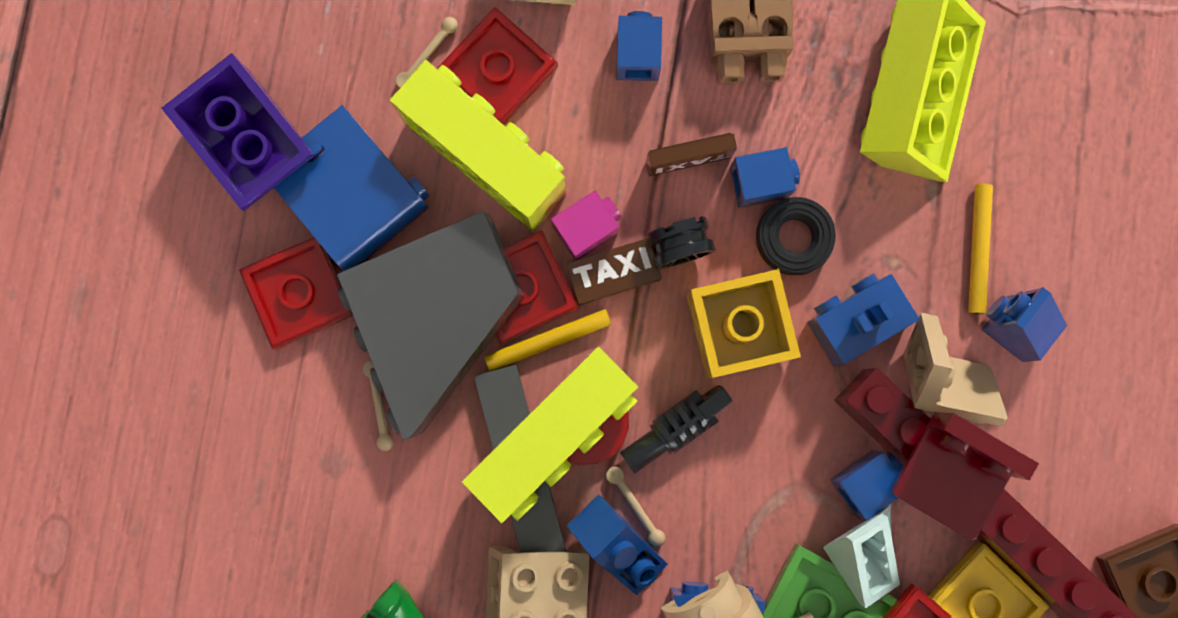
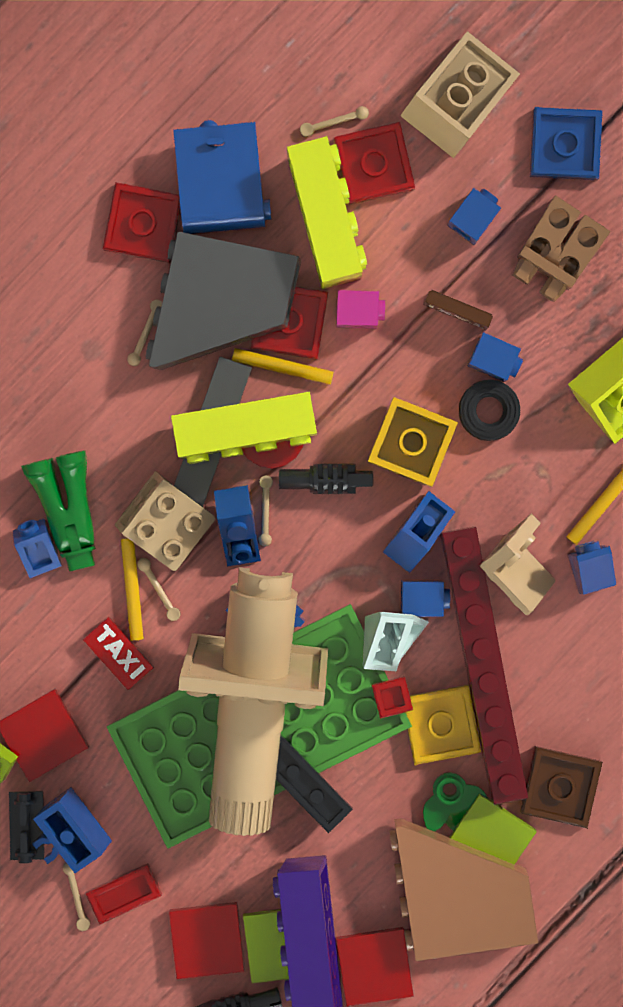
camera: 35 degrees right, 5 degrees up
(238, 131) = (177, 96): dark purple slope -> none
(613, 271) = (356, 351): reddish brown tile -> none
(681, 242) = (411, 363): black wheel -> none
(816, 416) = (419, 532): none -> blue slope
(863, 319) = (492, 492): blue brick -> none
(959, 473) = (474, 622): dark red bracket -> none

